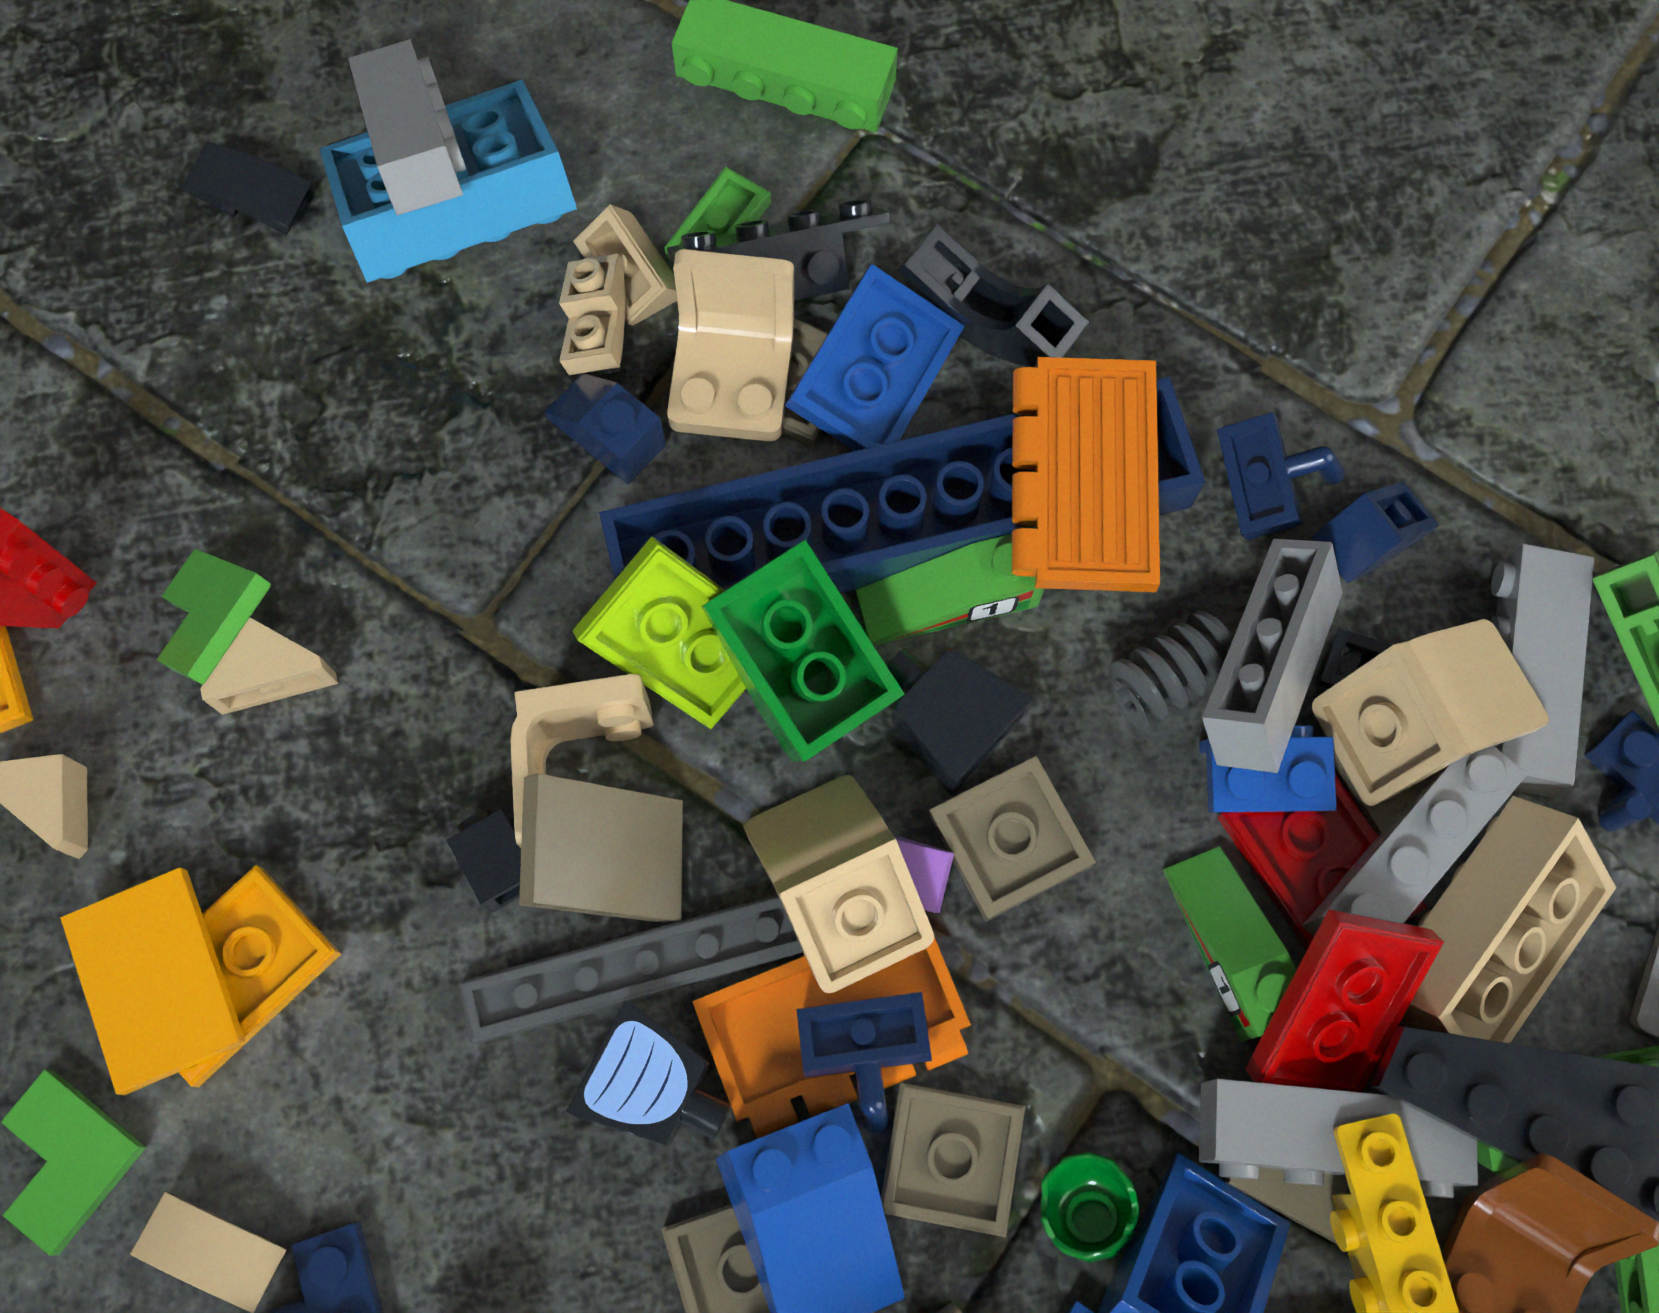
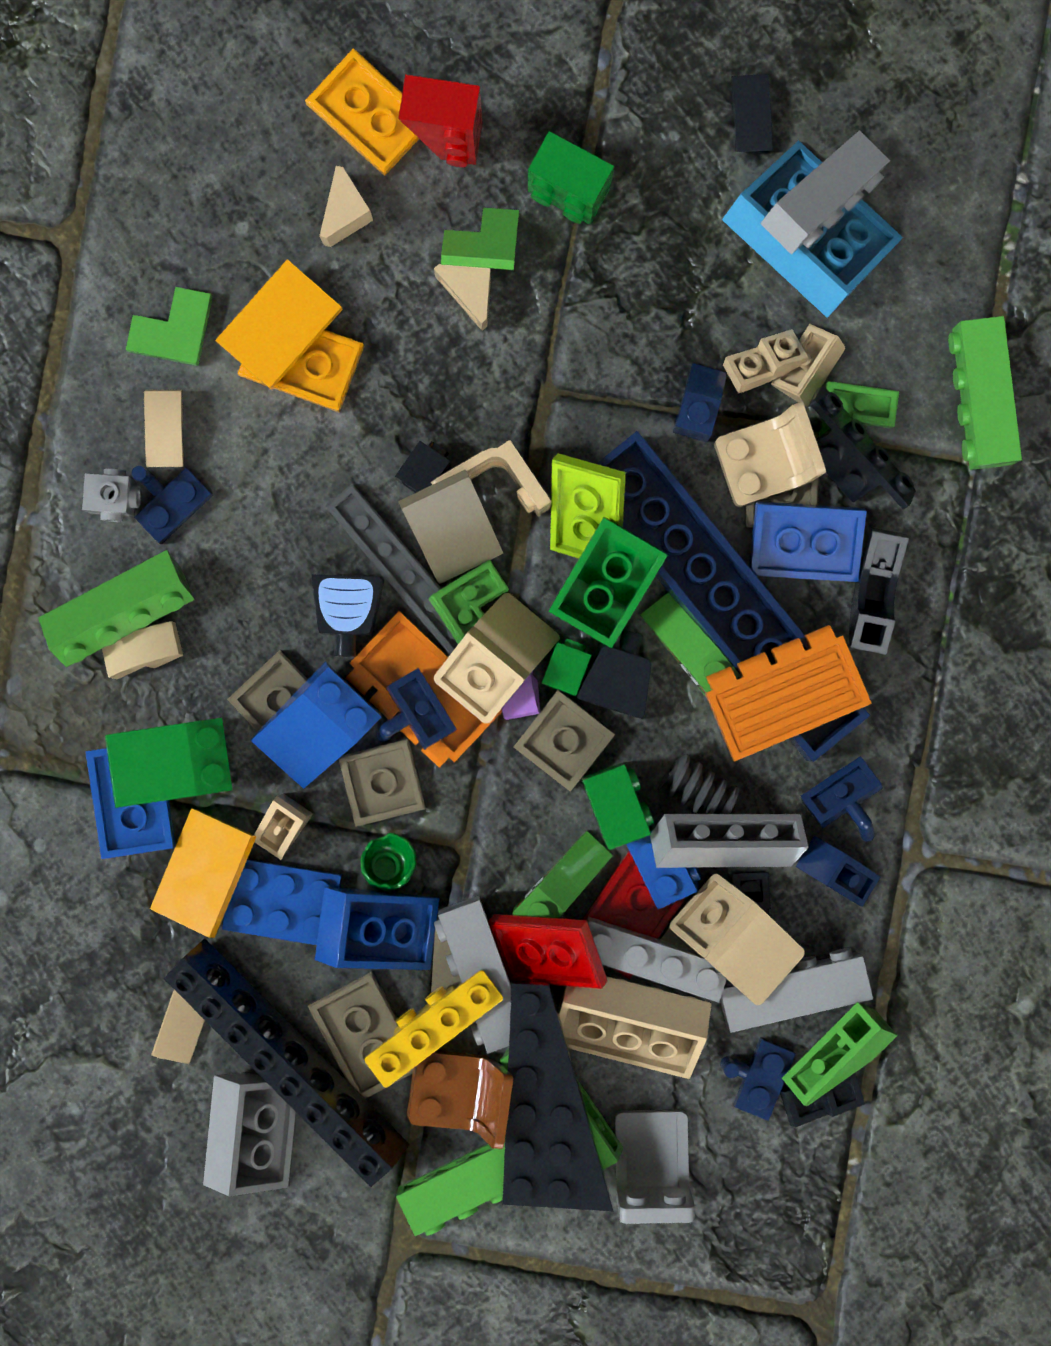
camera: 65 degrees right, 15 degrees up
(186, 448) = (569, 179): none -> green brick
(723, 893) = (462, 600): none -> bright green tile
(901, 781) = (567, 667): none -> green brick
(1151, 796) = (617, 806): none -> green brick

